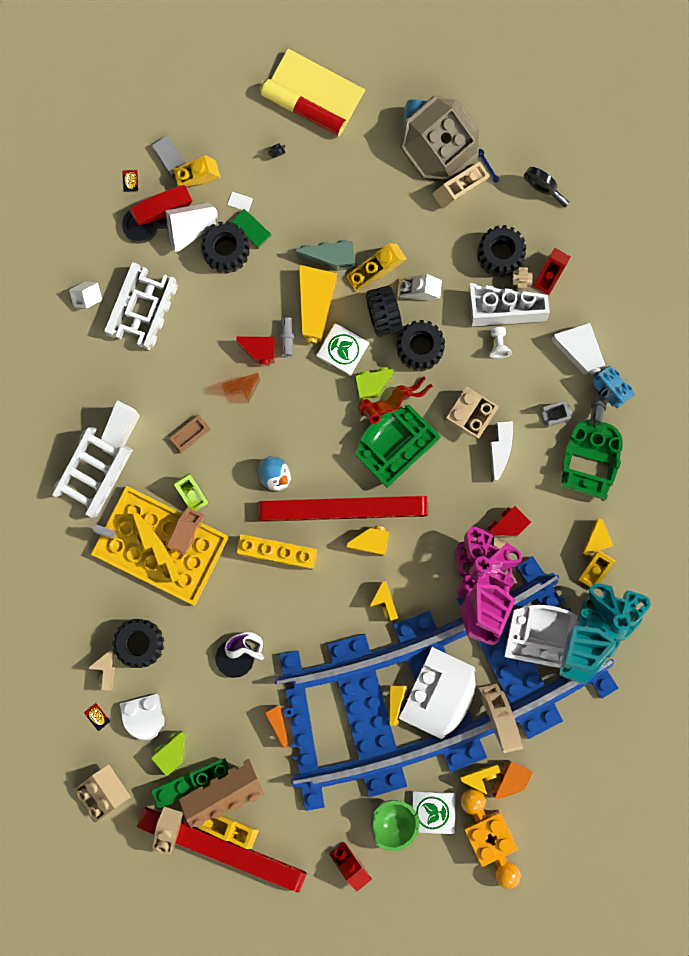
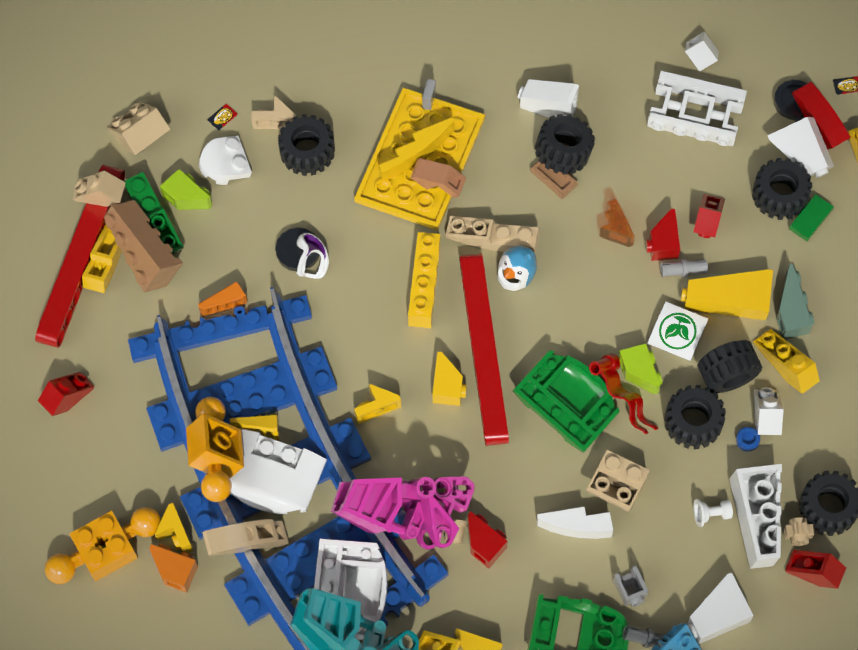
camera: 85 degrees right, 15 degrees down
(103, 488) = (497, 95): white fence -> none
(155, 410) = (562, 157): none -> black tyre
(190, 492) = (487, 177): lime slope -> none
(240, 201) = (843, 204): white sticker -> none
(241, 490) = (491, 236): none -> tan slope
(242, 309) = (709, 216): none -> red slope
(394, 825) = (114, 432): bright green cylinder -> none
(422, 739) = (214, 448): none -> light orange brick
(435, 811) = (131, 481): slope -> none
(439, 307) = (747, 439): none -> blue tile

